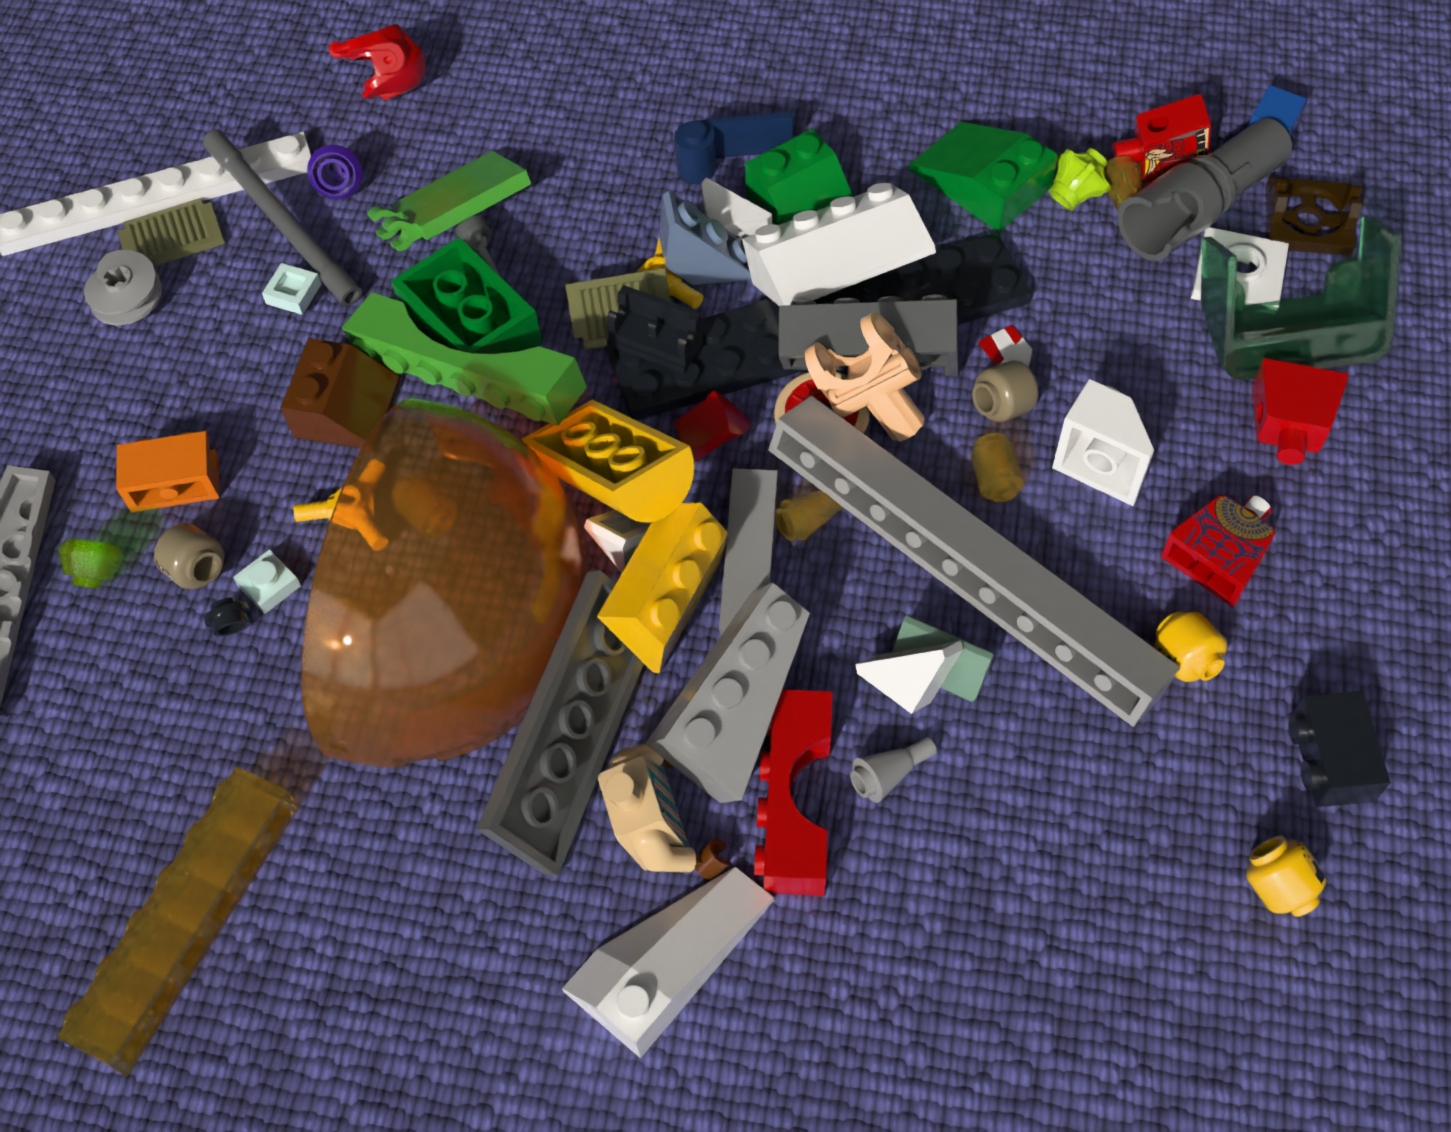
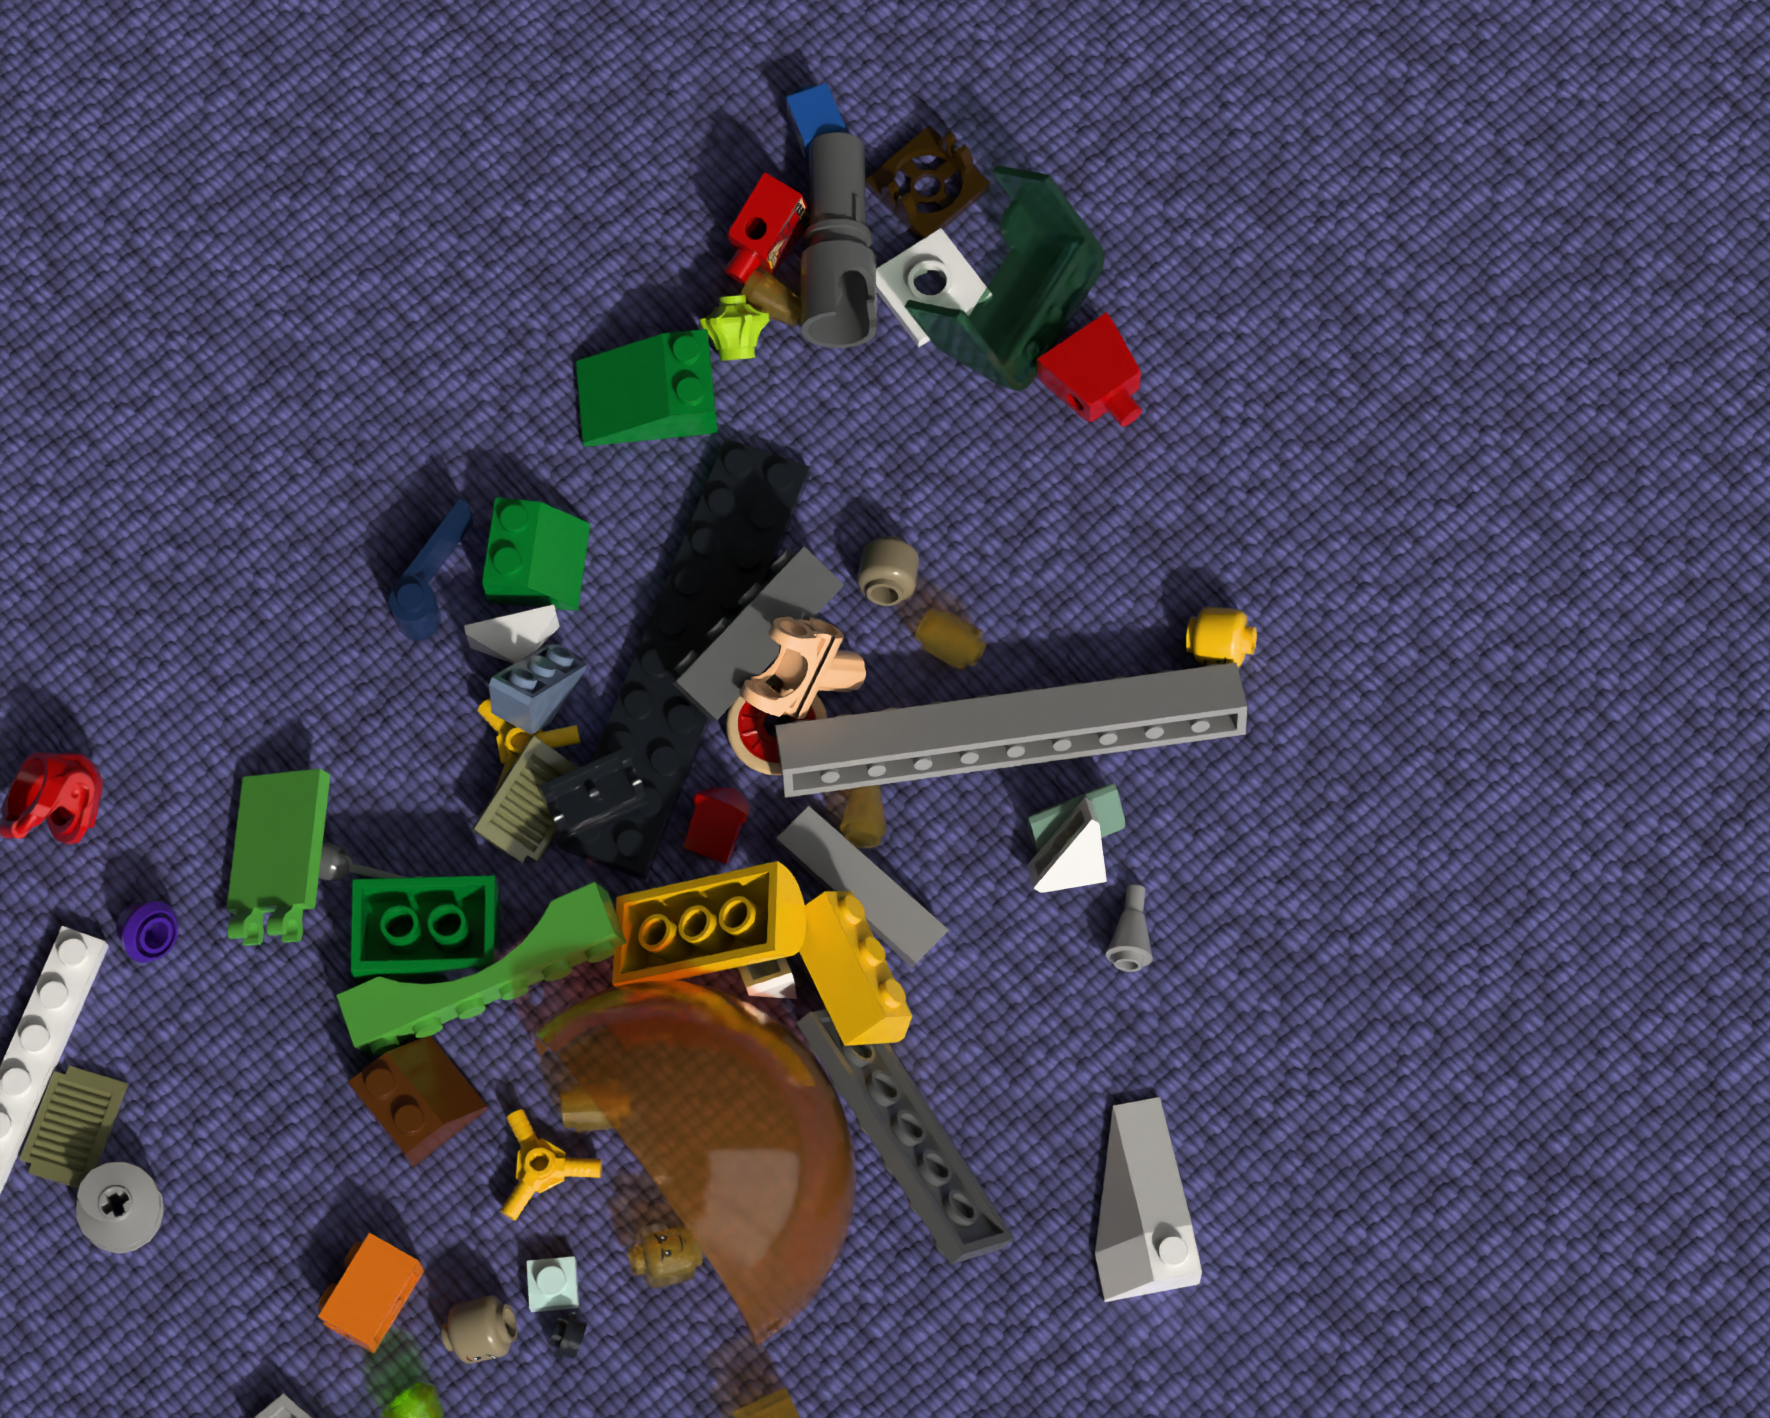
camera: 50 degrees left, 10 degrees up
(291, 288) = (251, 1060): light aqua plate -> none
(330, 273) = (58, 1013): dark grey piece -> none
(647, 817) = (1023, 1133): tan torso -> none
(731, 698) = (988, 995): light grey wedge -> none
(794, 847) = (1138, 1053): red arch -> none
(837, 245) = (637, 581): white slope -> none
(1006, 346) = (841, 530): sticker -> none
(1105, 443) = (1009, 543): white slope -> none
(1222, 545) = (1162, 536): red torso -> none
(1286, 876) = (1439, 735): yellow head -> none
(1338, 749) = (1383, 613): black brick -> none

